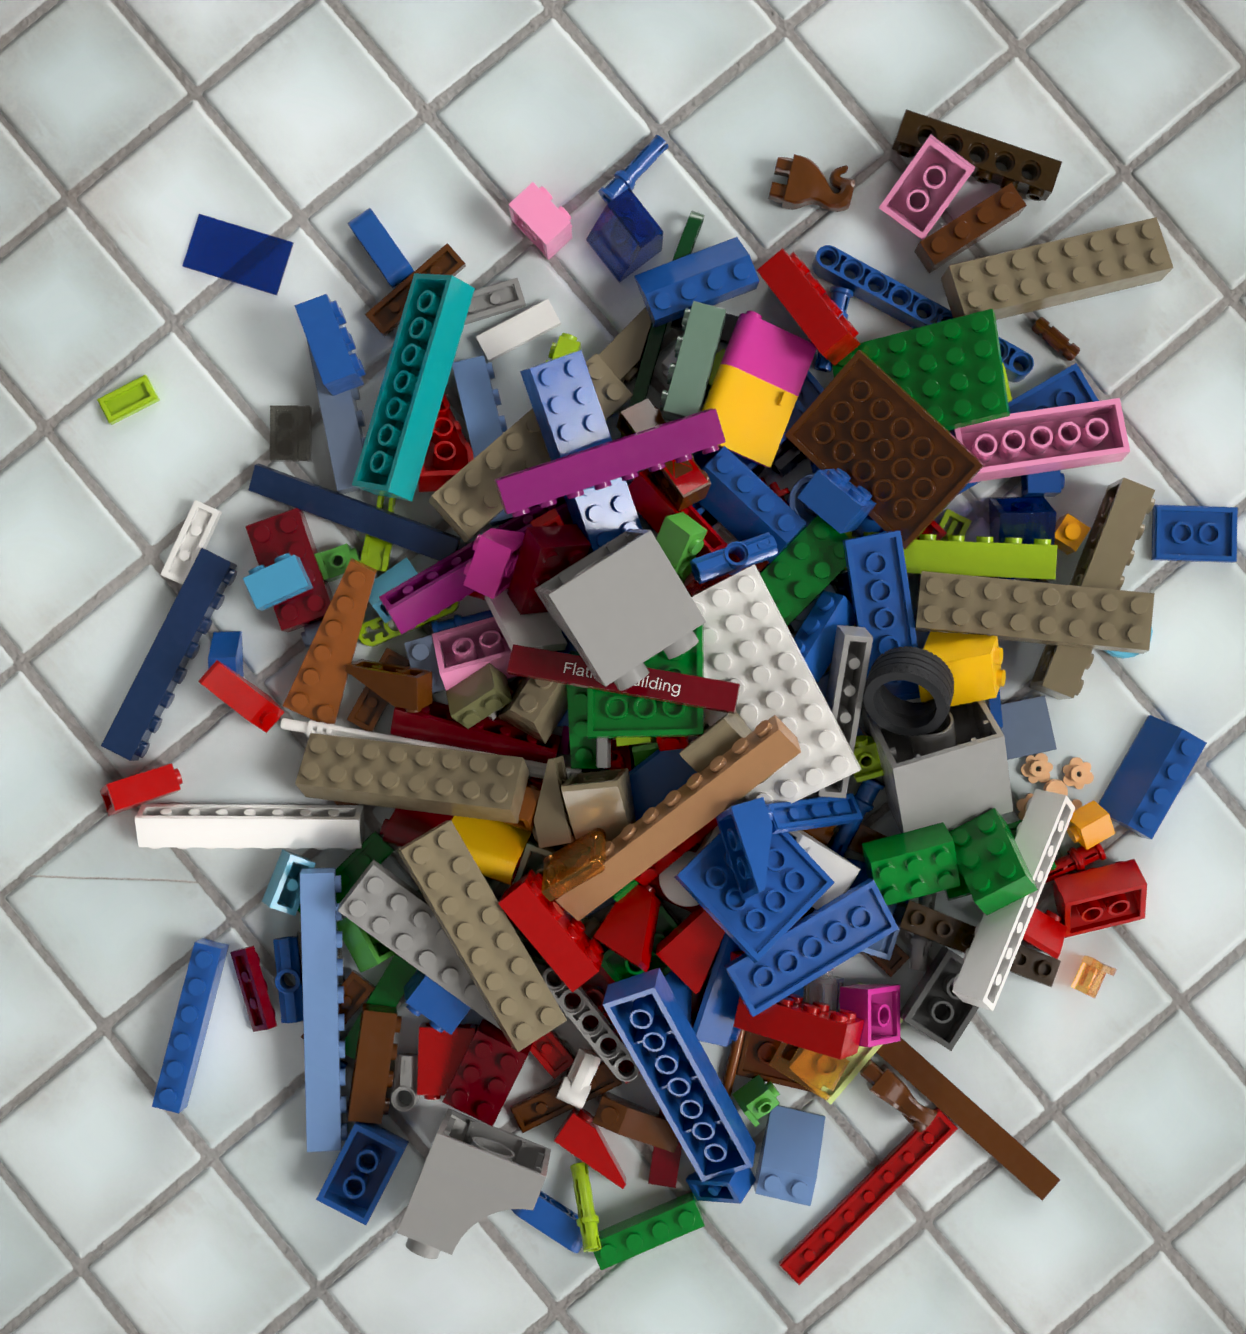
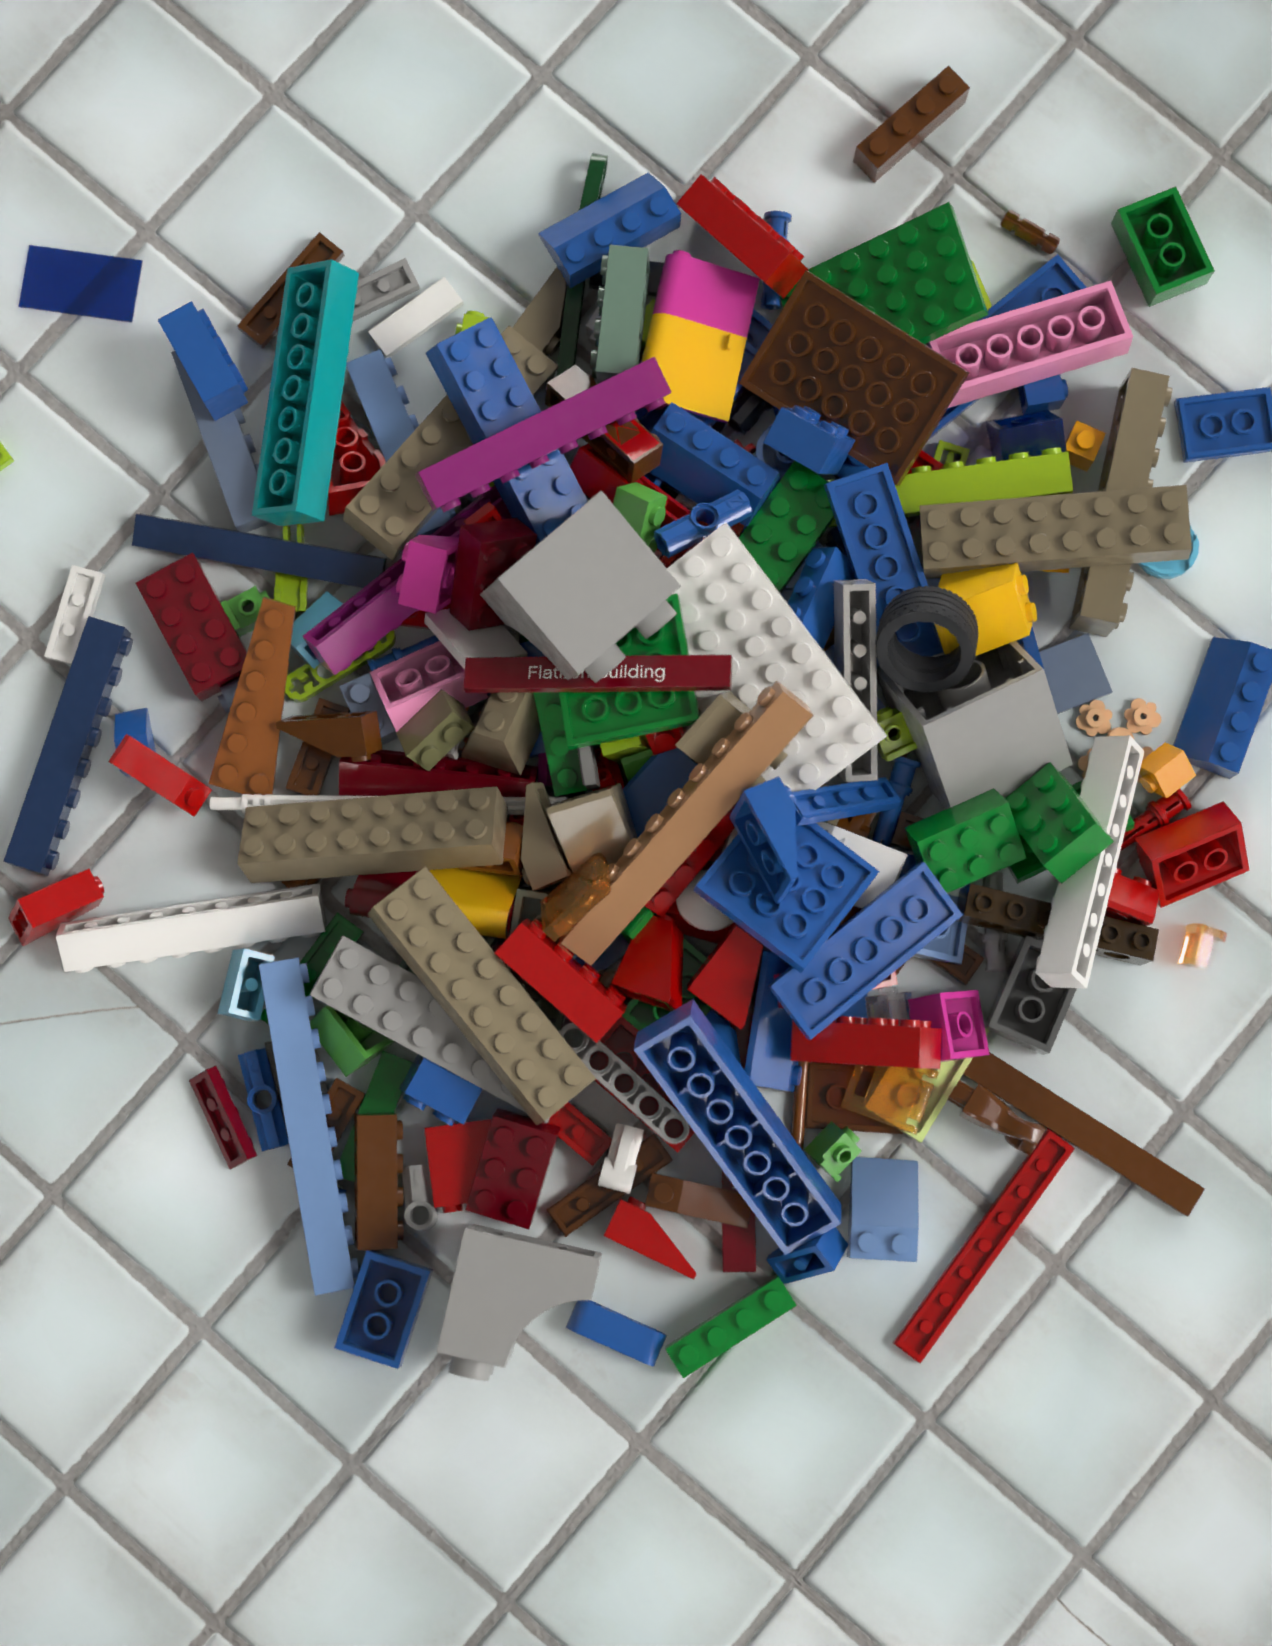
camera: 10 degrees left, 5 degrees down
(190, 1025) = (155, 1172): blue brick -> none
(277, 582) = (182, 636): dark azure brick -> none
(291, 433) = (171, 473): clear smoke plate -> none
(381, 247) = (244, 249): blue beam -> none
(541, 220) = (422, 189): bright pink brick -> none
(587, 1218) = (657, 1320): lime pin -> none
(625, 235) = (521, 191): clear blue slope -> none
(626, 178) = (511, 131): blue pin -> none
(808, 185) = (721, 106): reddish brown hips -> none
(912, 301) = (860, 216): blue beam -> none
(927, 187) = (853, 84): bright pink brick -> none
(966, 142) = (893, 30): dark brown brick -> none
(1059, 271) = (1020, 153): dark tan brick -> none
(1167, 371) = (1162, 246): none -> green brick

